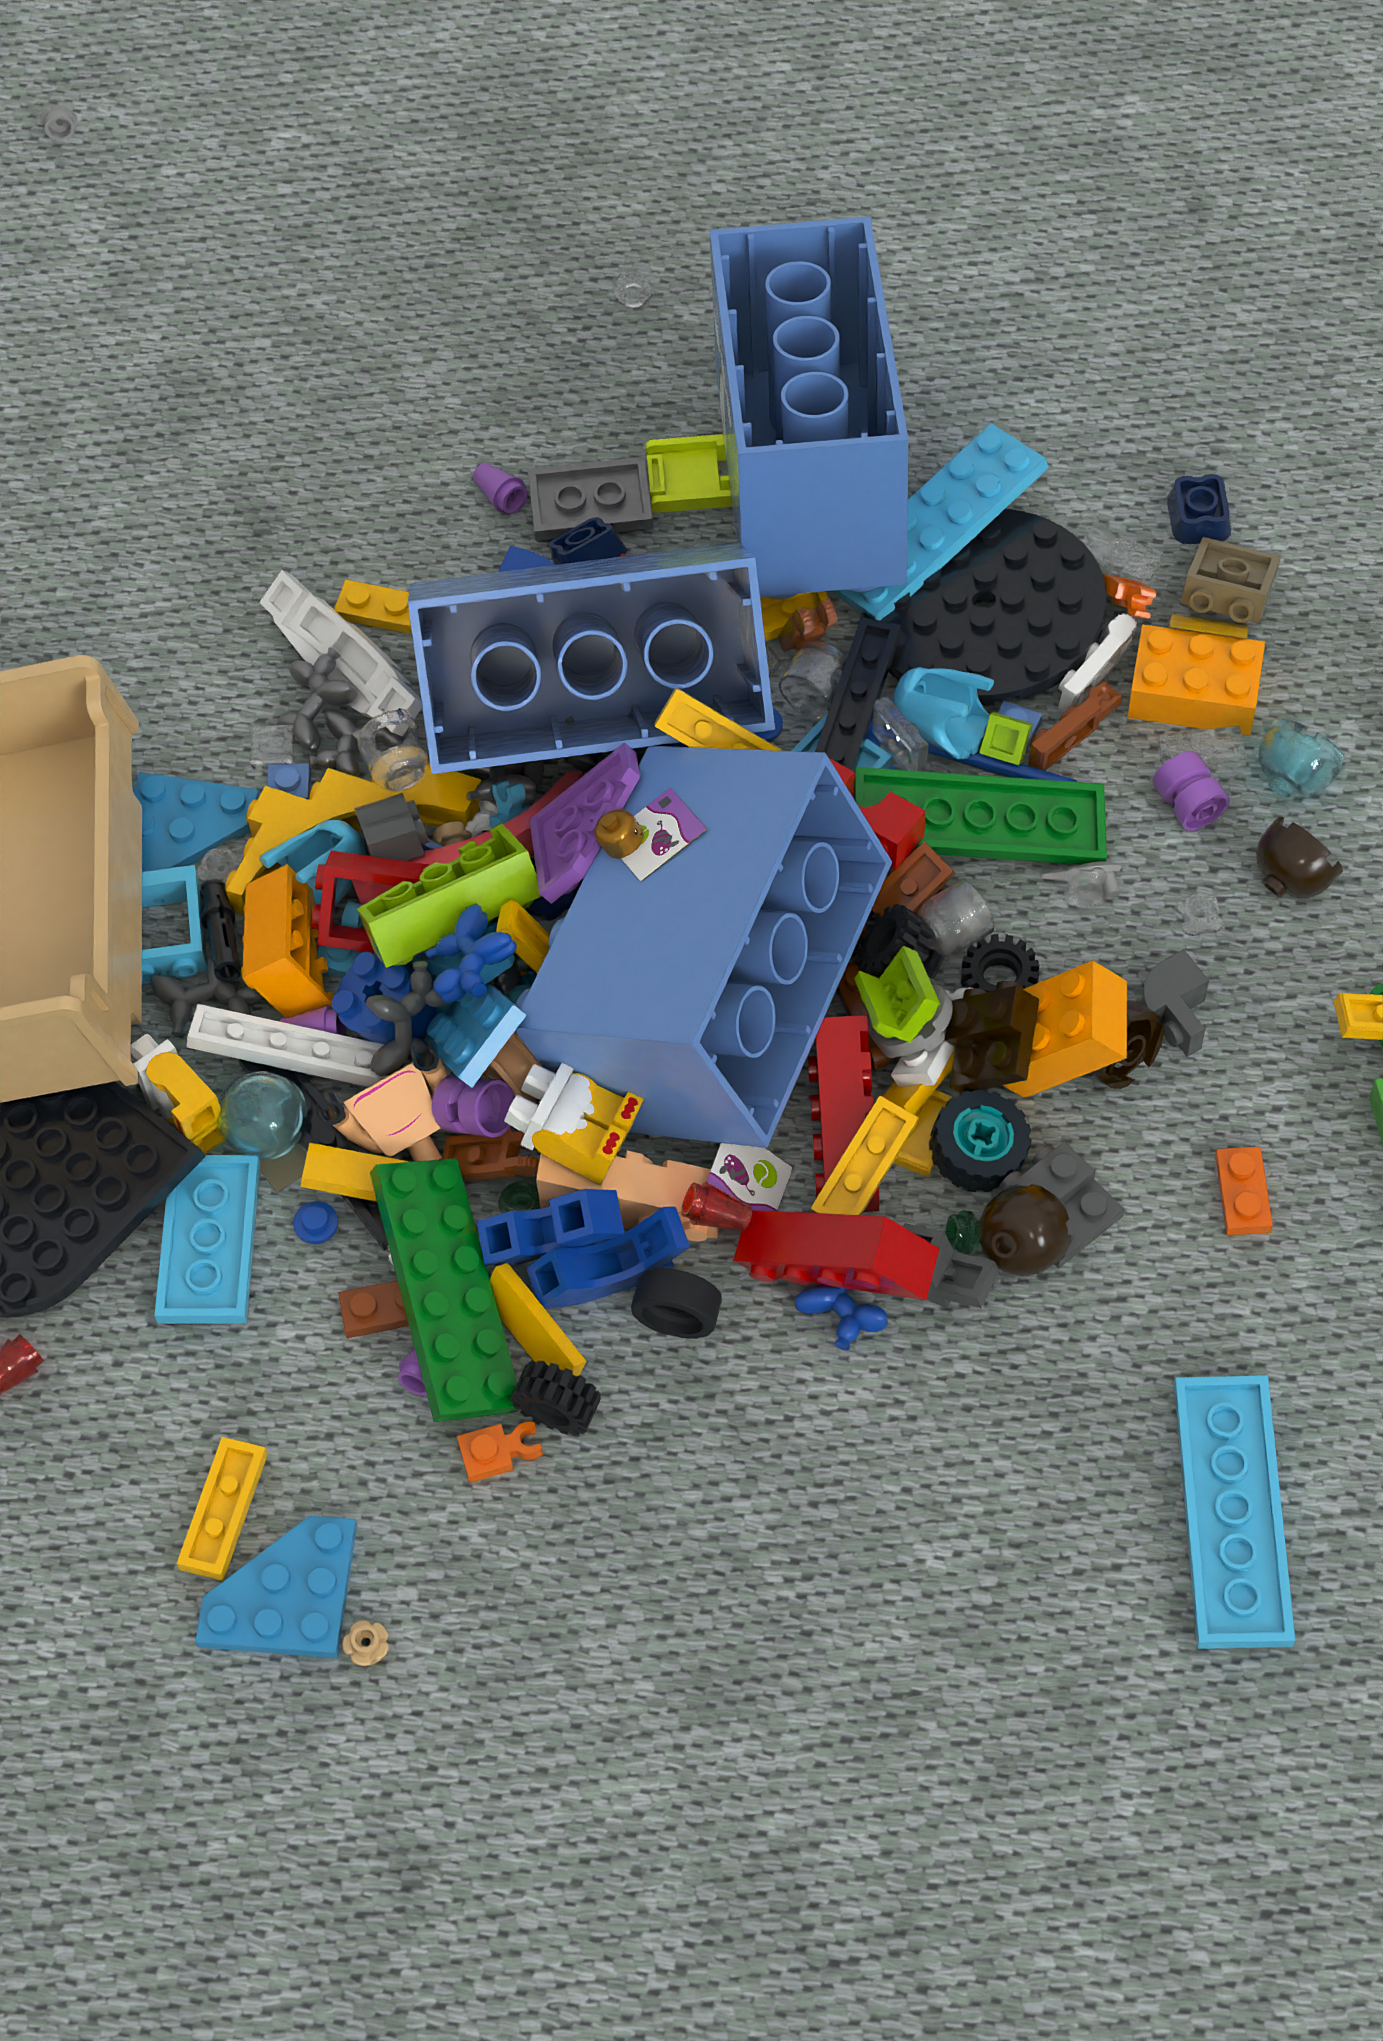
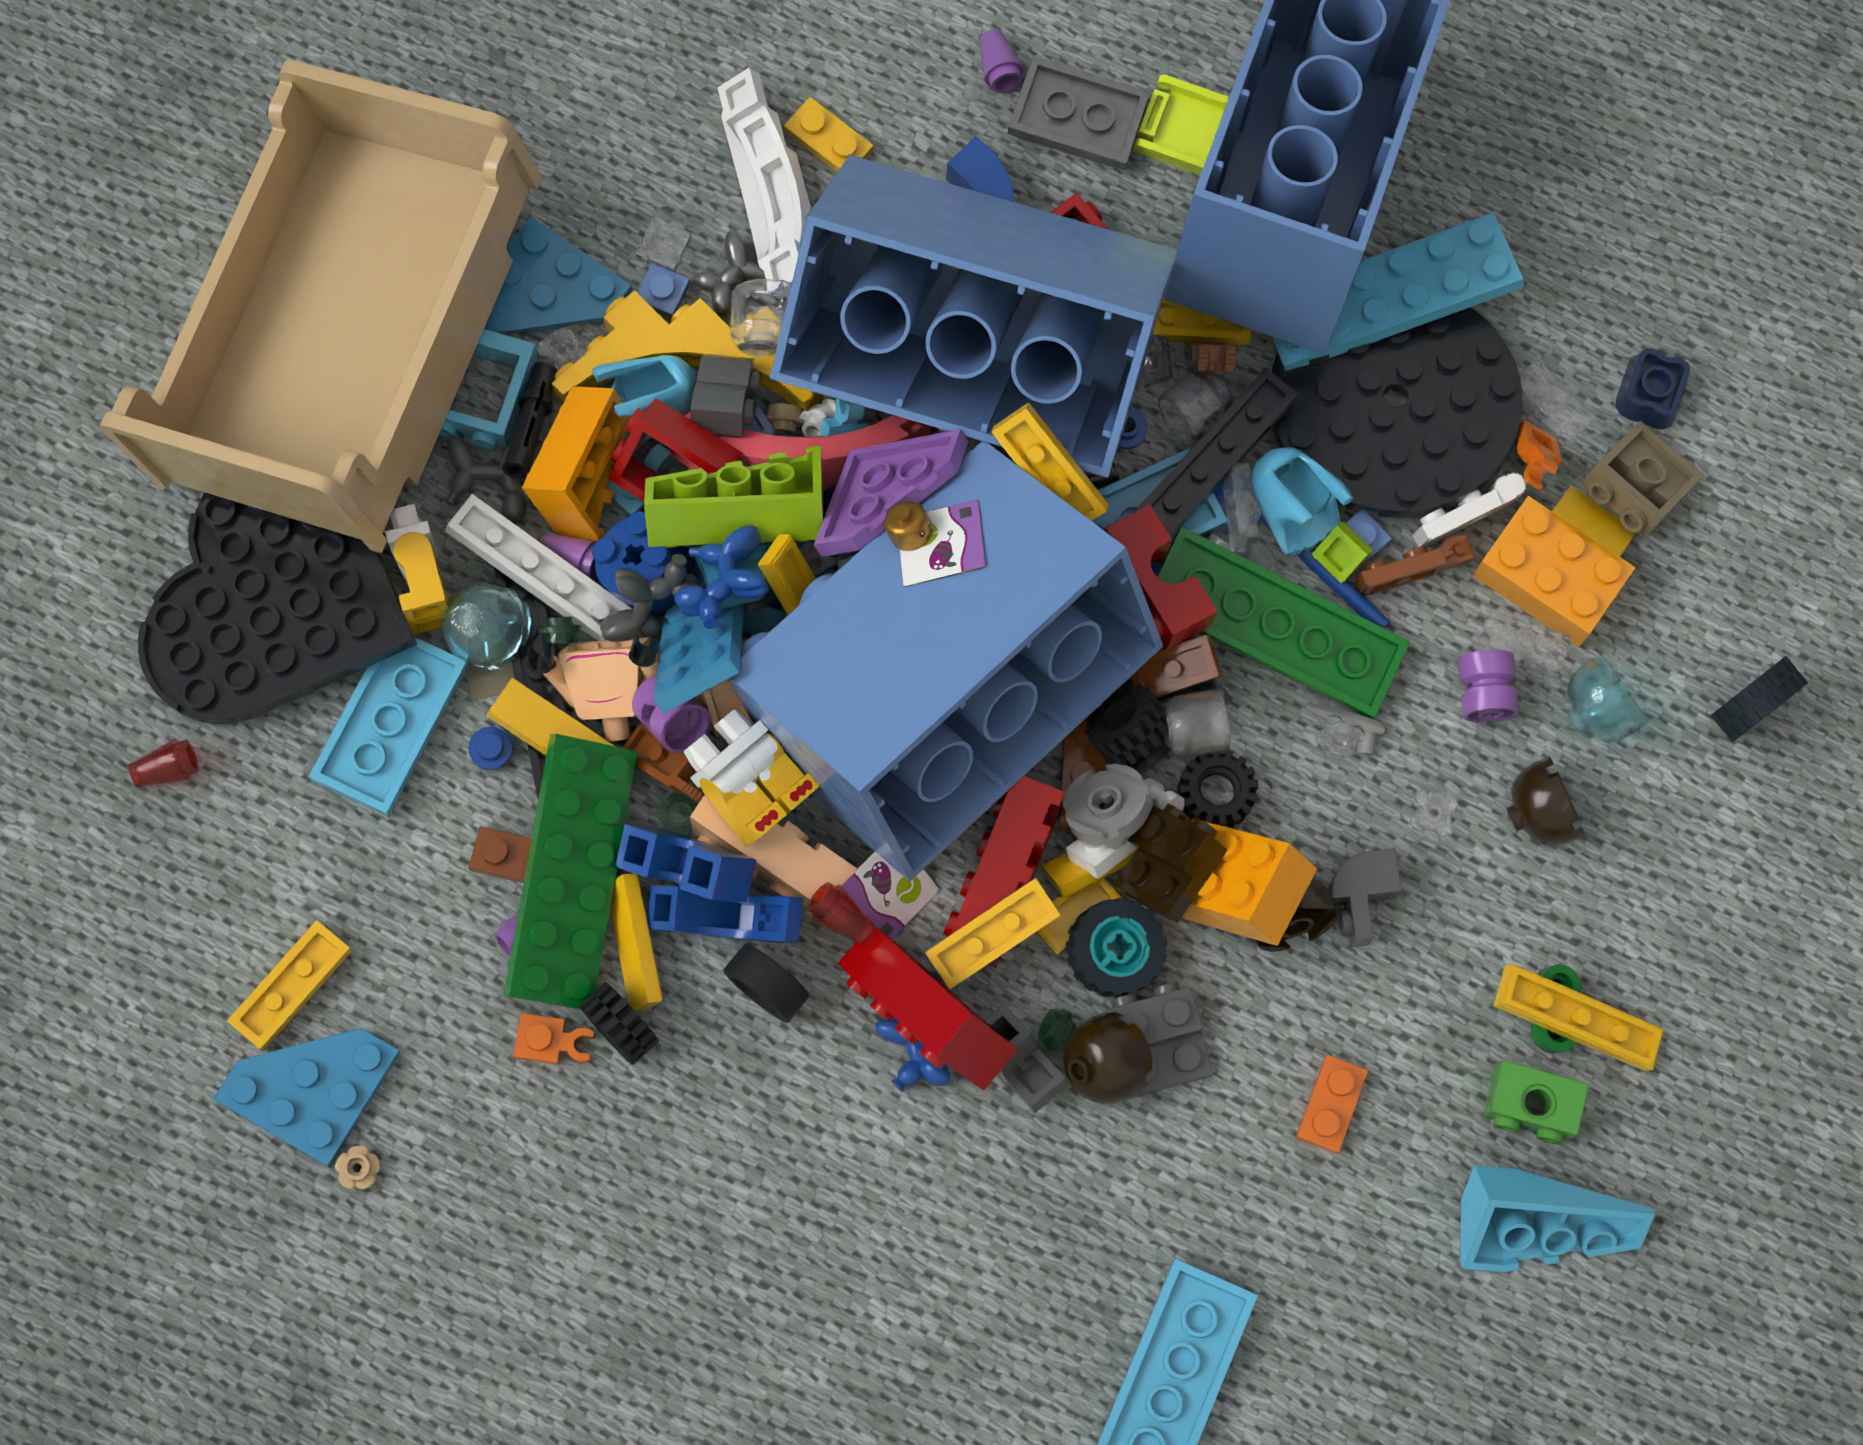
camera: 15 degrees right, 15 degrees up
(323, 691) = (734, 188): flat silver piece -> none
(335, 1083) = (560, 630): none -> clear green plate
(587, 542) = (1046, 171): dark blue piece -> none
(900, 998) = (1100, 787): lime bracket -> none

